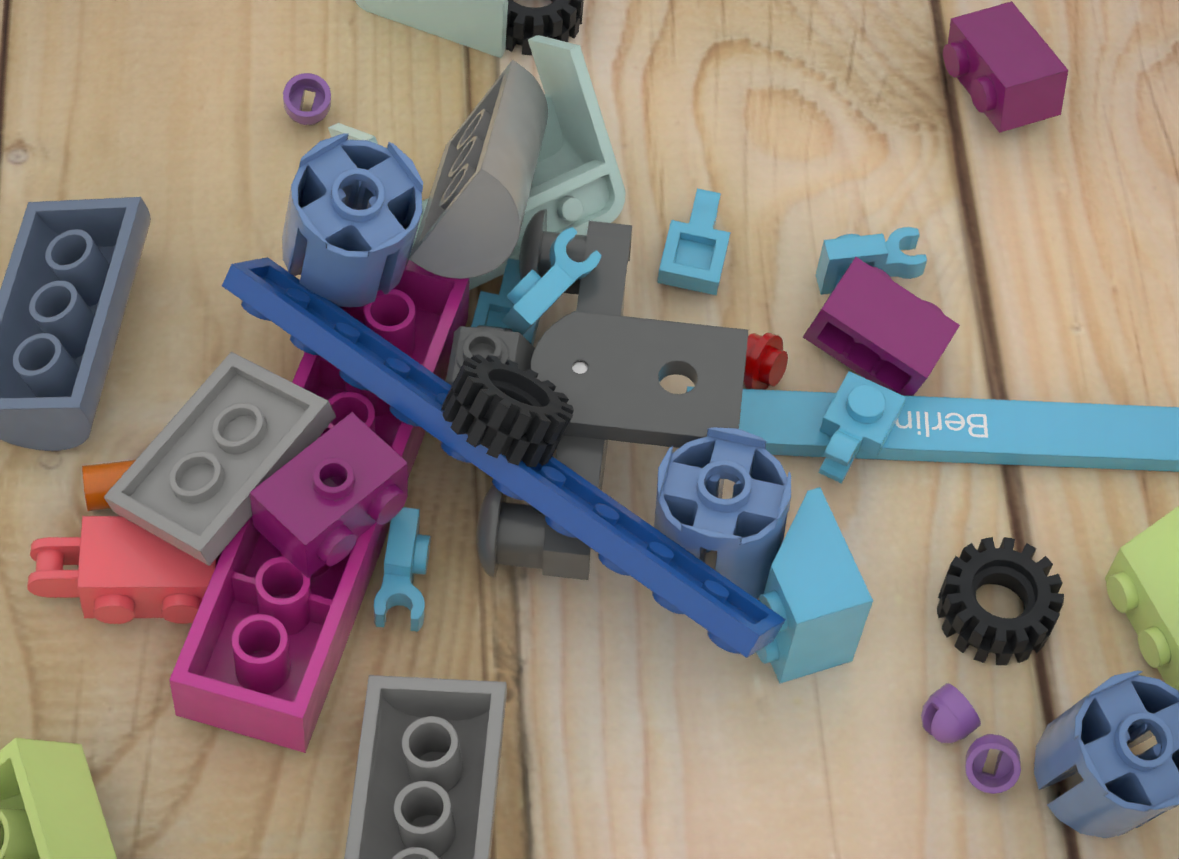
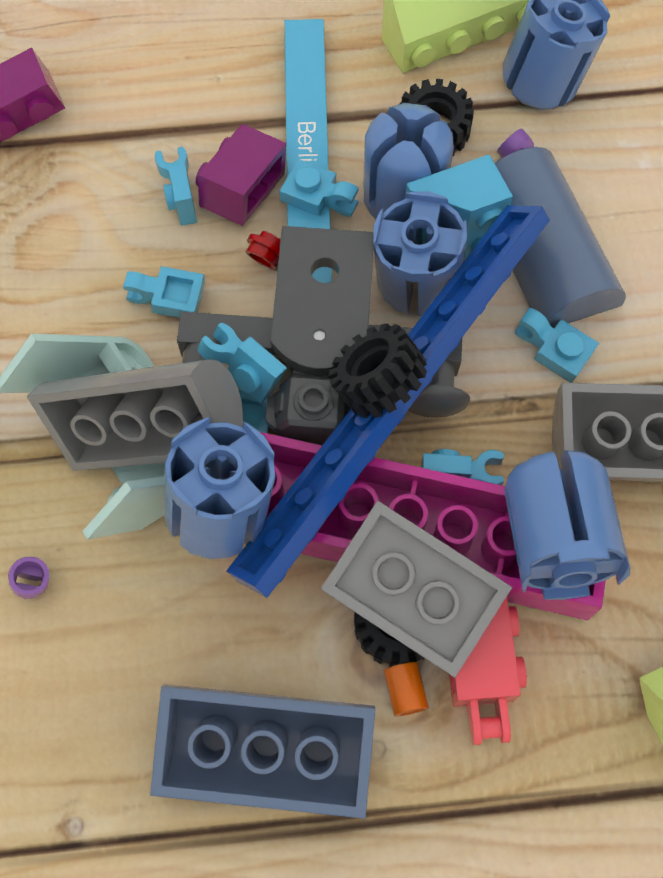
camera: 85 degrees left, 10 degrees up
(274, 611) = (565, 525): none -> medium blue cylinder
(330, 495) = (449, 496): magenta brick -> none
(593, 737) = (560, 348): none -> medium azure plate
(782, 744) = (565, 267): none -> sand blue brick
(894, 518) = (401, 149): none -> medium blue cylinder
(1006, 769) = (545, 126): medium lavender hinge -> none

